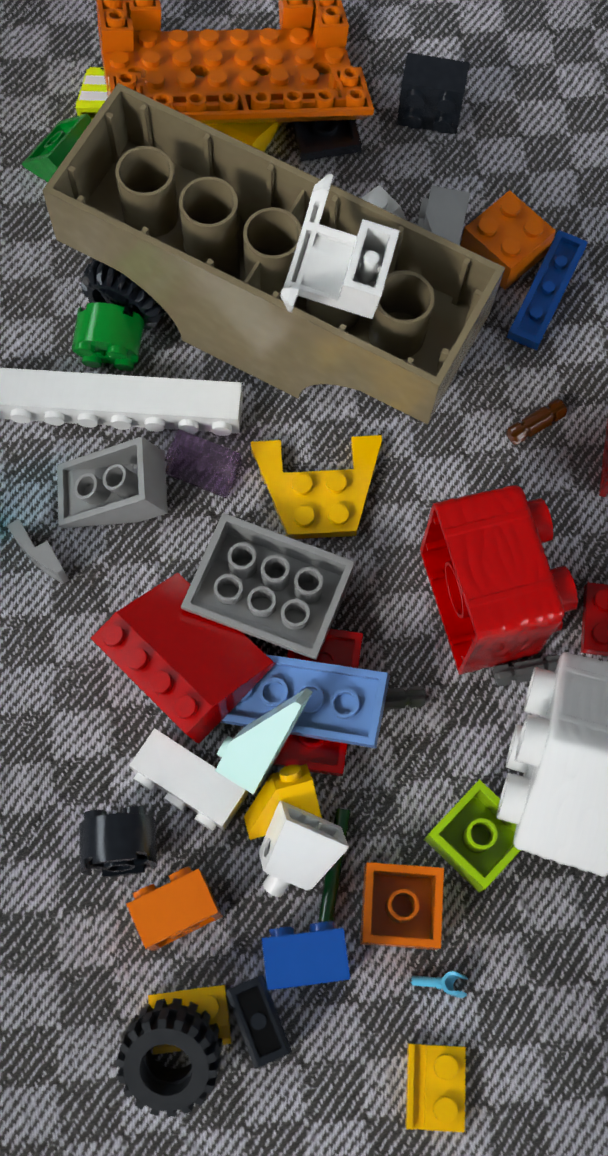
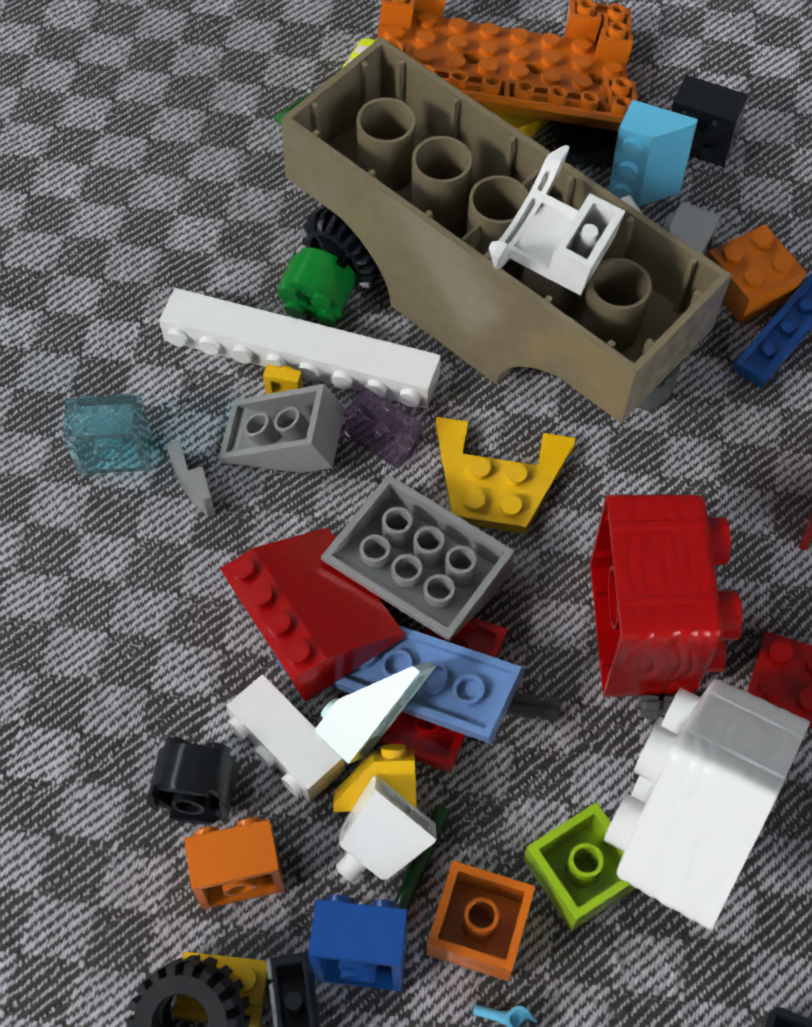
camera: 15 degrees right, 10 degrees down
(99, 436) = (281, 378): none -> yellow plate
(391, 140) = (651, 153): none -> medium azure slope
(536, 421) = (745, 458): reddish brown axle -> none

